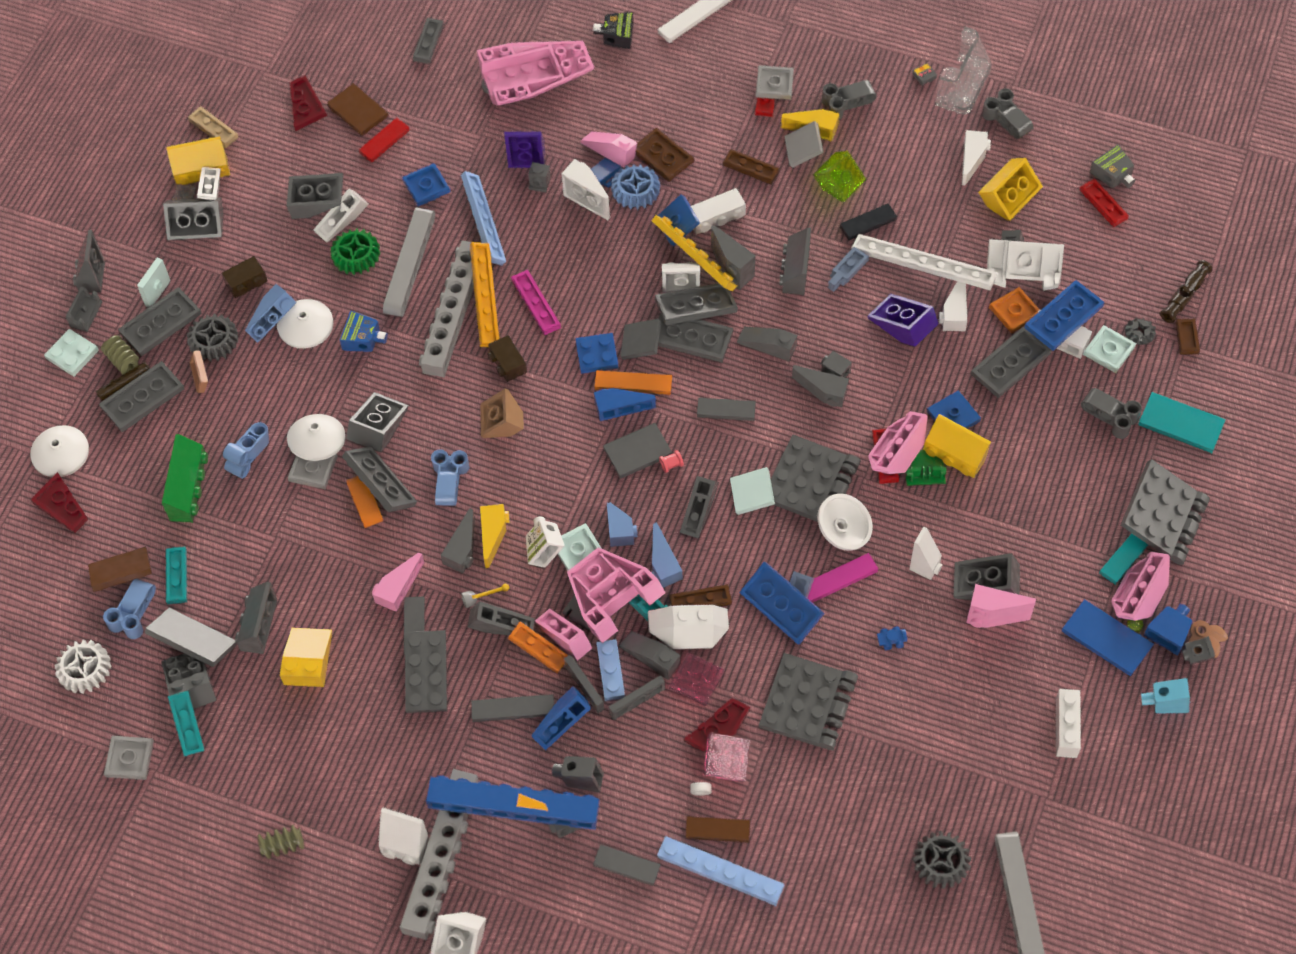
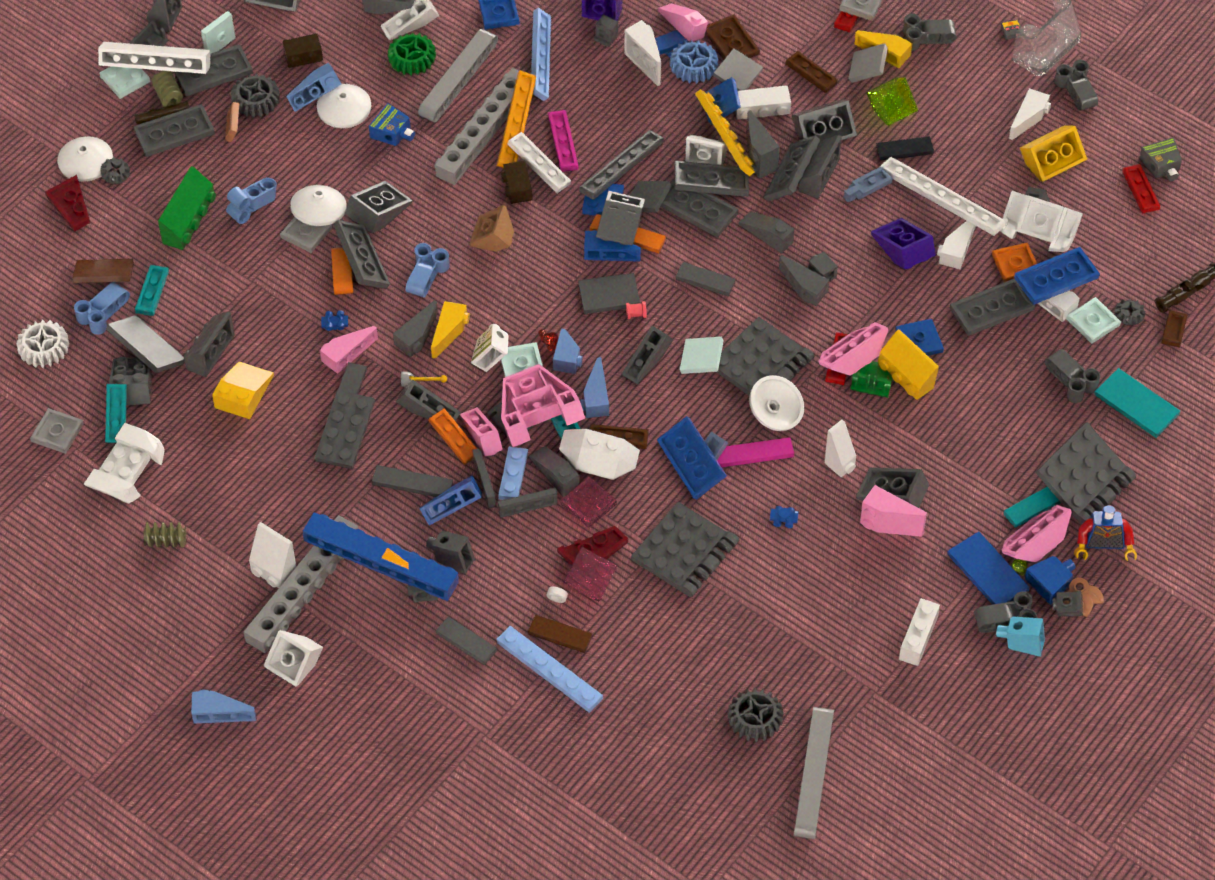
camera: 15 degrees right, 5 degrees down
(95, 464) = (115, 177): none -> dark grey gear
(97, 325) = (154, 57): none -> white brick
(214, 774) = (126, 463): none -> white piece
(374, 558) = (332, 322): none -> blue piece
(521, 332) = (539, 162): none -> white tile
(599, 517) = (549, 339): none -> clear red plate
(603, 313) = (621, 164): none -> dark grey tile
(625, 370) = (620, 218): none -> dark grey slope
(681, 181) = (740, 68): none -> light grey tile
(770, 272) = (791, 168): none -> dark grey plate
(784, 217) = (825, 121): none -> dark grey slope
(1142, 680) = (991, 616): none -> dark grey piece
(1206, 565) = (1106, 531): none -> torso

